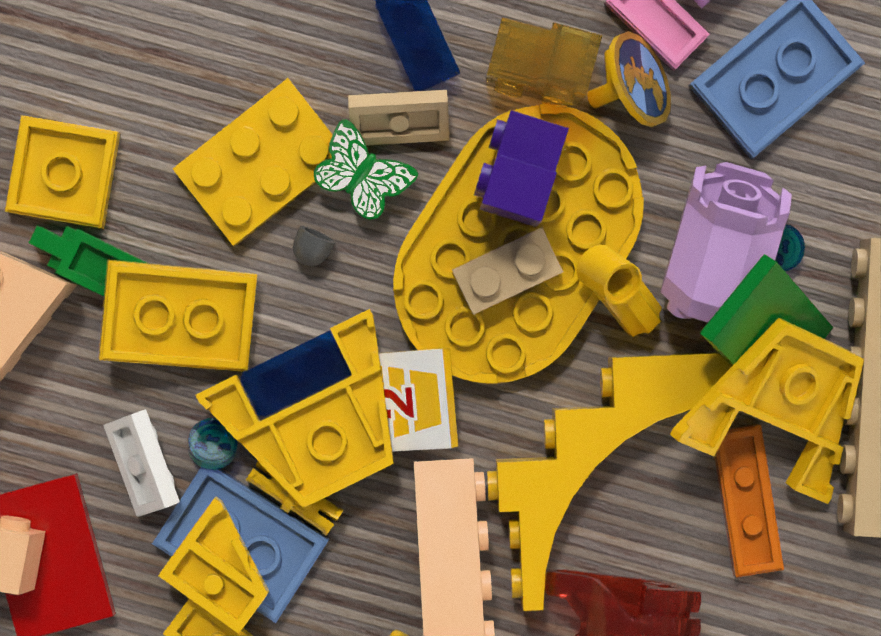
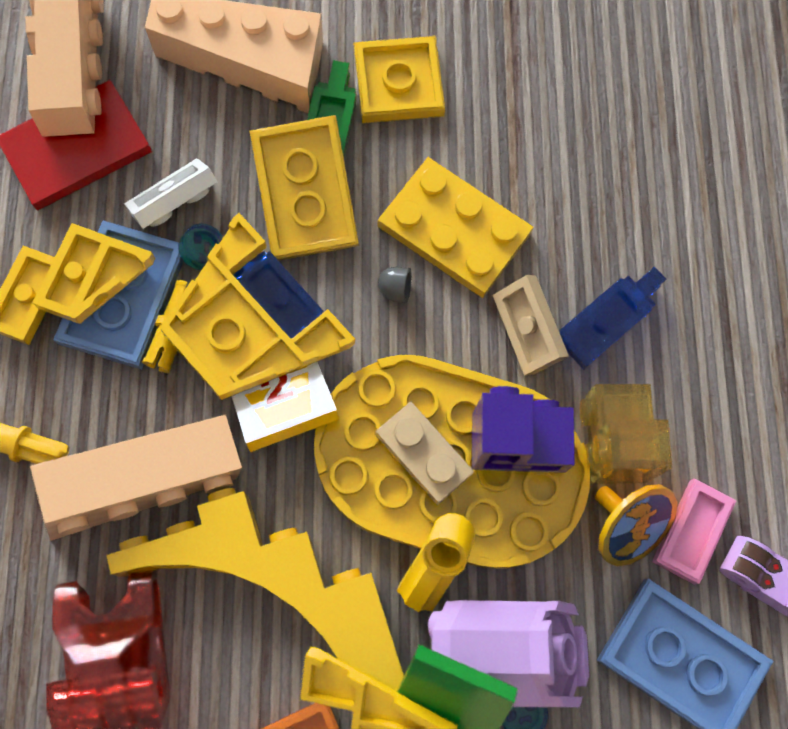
camera: 70 degrees right, 15 degrees down
(361, 173) = (473, 304): animal -> none

